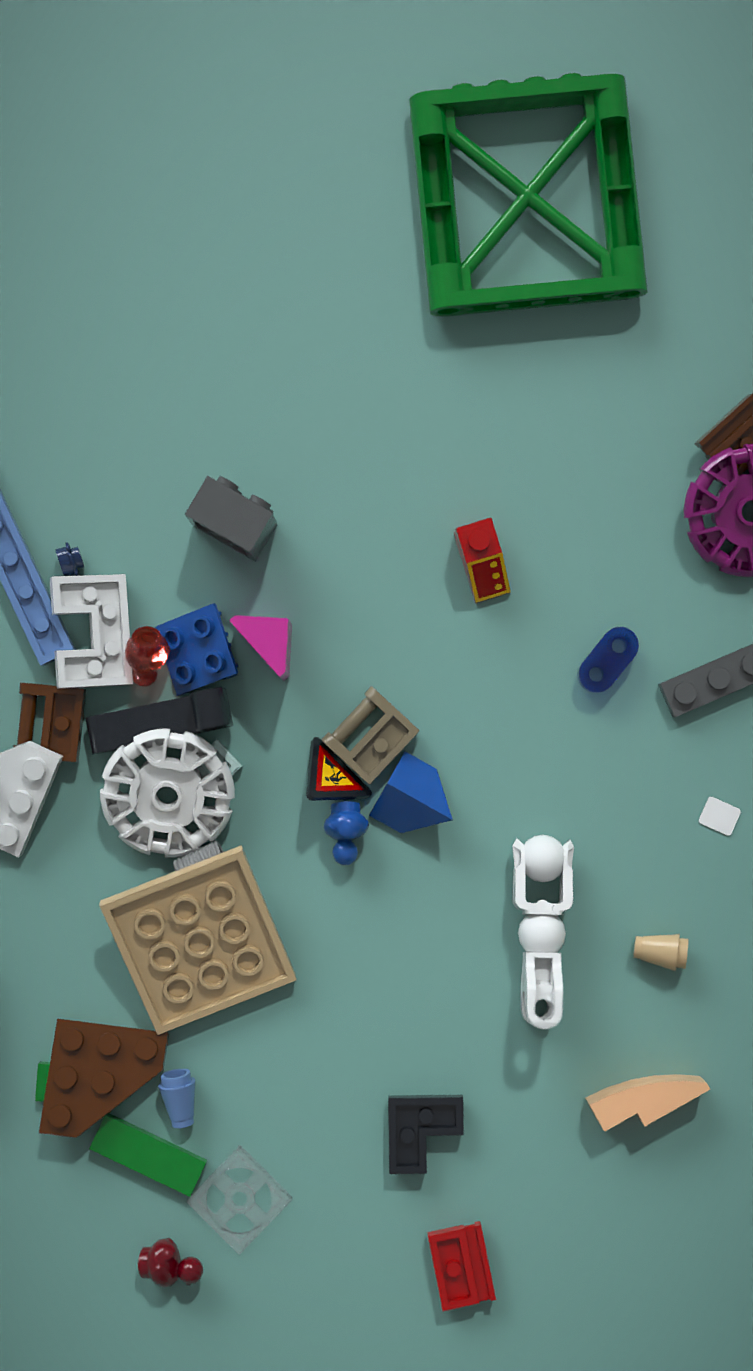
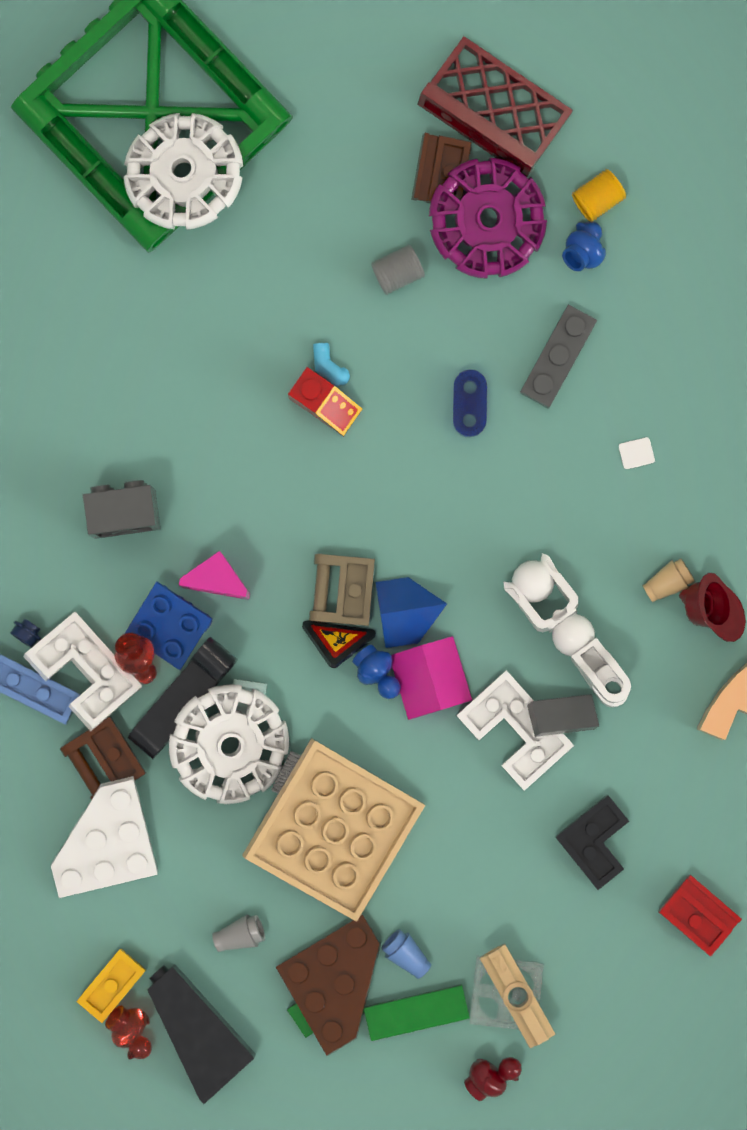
camera: 40 degrees left, 0 degrees up
(49, 966) = (243, 933): none -> light grey cone
(241, 1234) = (527, 1015): none -> tan piece
(388, 872) = (430, 677): none -> dark pink slope
(440, 946) = (509, 701): none -> white plate
(477, 996) = (563, 715): none -> dark grey tile
(507, 532) = (327, 368): none -> medium azure arm
(515, 284) = (189, 189): none -> white plate
(635, 495) = (398, 269): none -> light grey piece
(685, 1005) = (714, 607): none -> dark red piece

